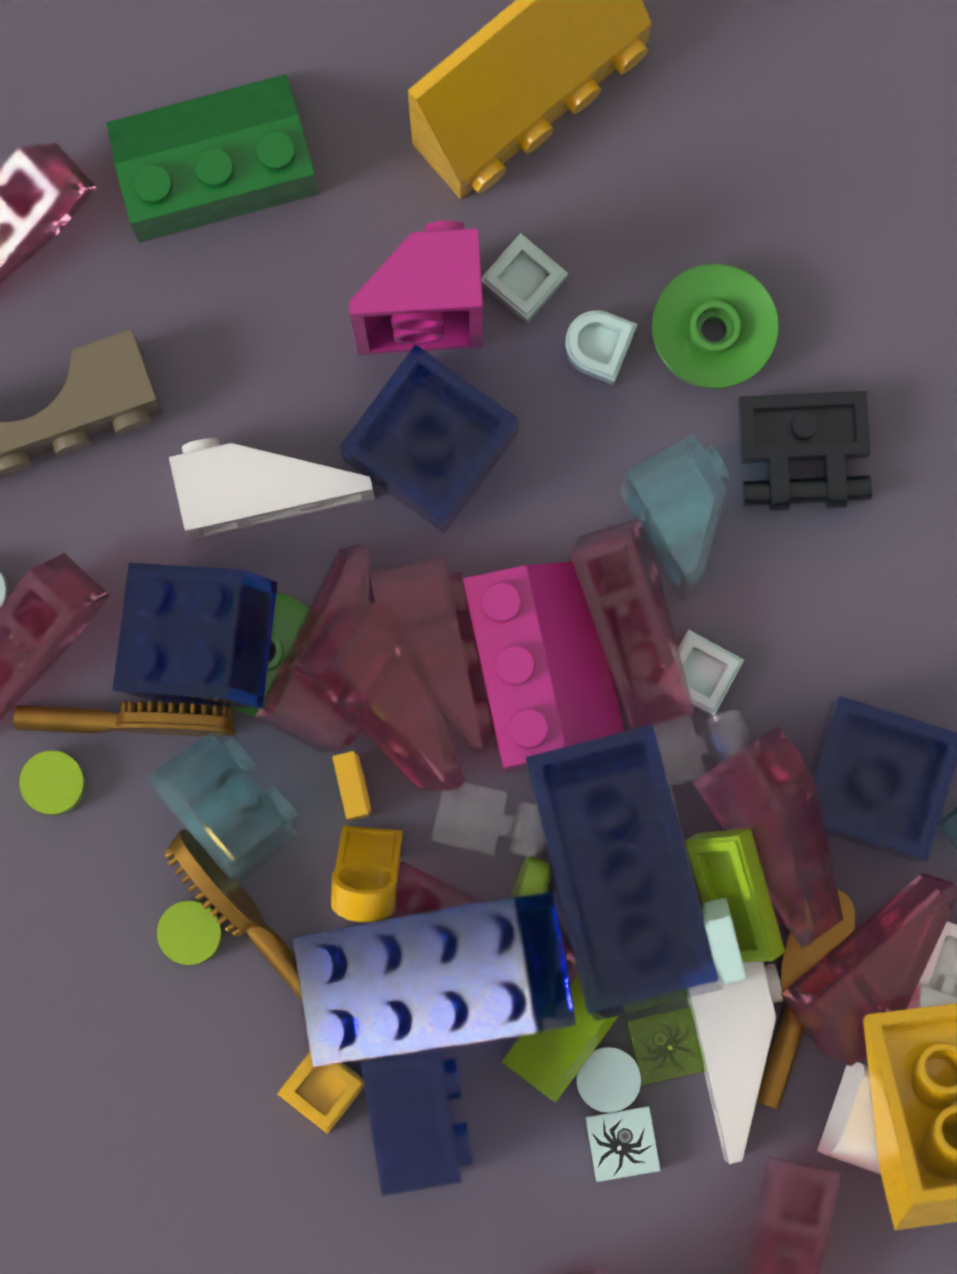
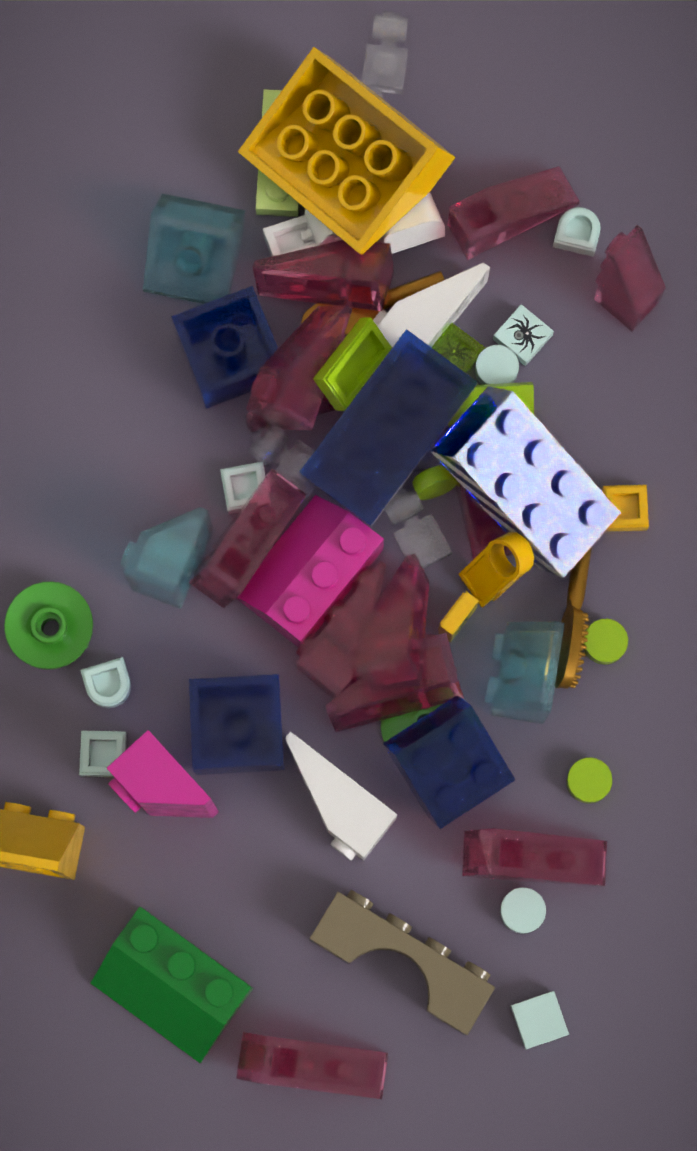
camera: 130 degrees left, 5 degrees down
(133, 717) = (522, 765): pearl gold piece -> none
(414, 1120) = (607, 432): clear blue brick -> none
(723, 941) = (382, 345): light aqua tile -> none
(802, 429) = (68, 536): black plate -> none

